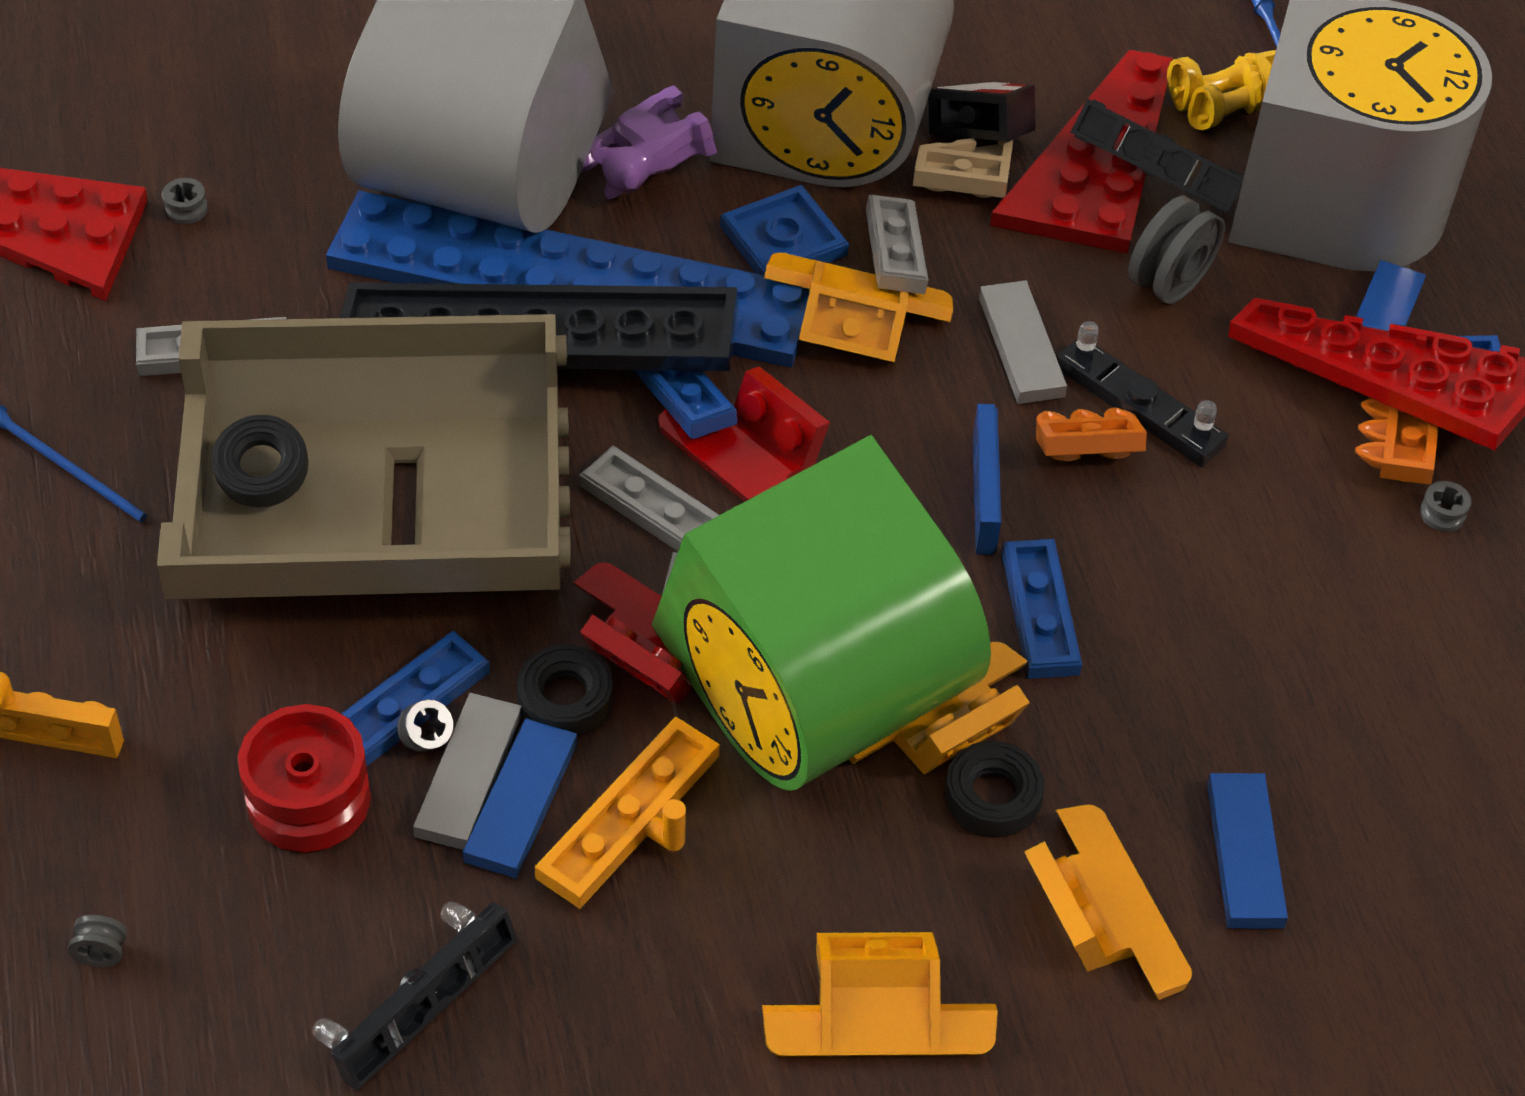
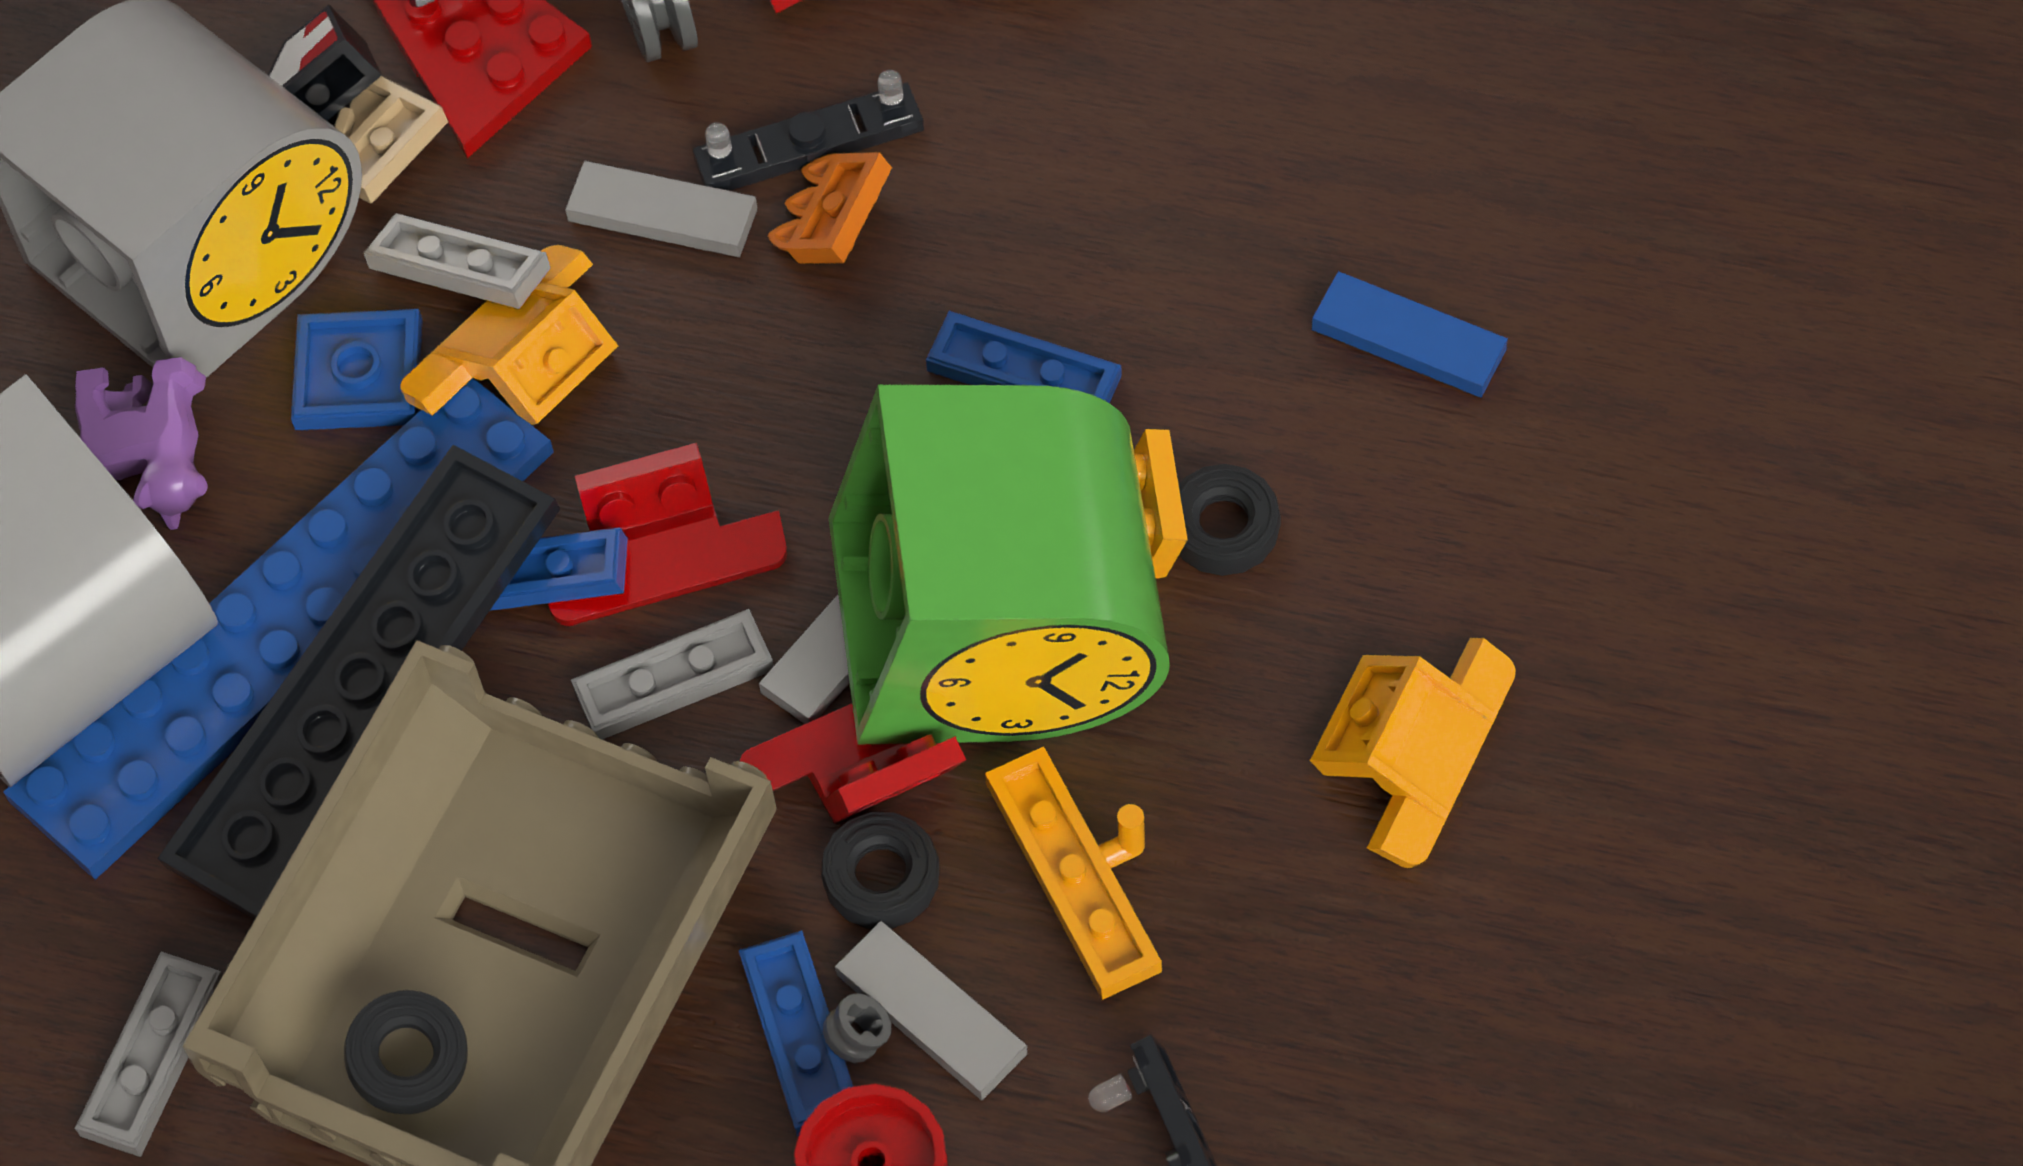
camera: 55 degrees left, 10 degrees up
(520, 798) = (993, 971): blue tile -> none
(986, 479) = (837, 333): blue tile -> none
(1107, 903) = (1406, 486): light orange plate -> none

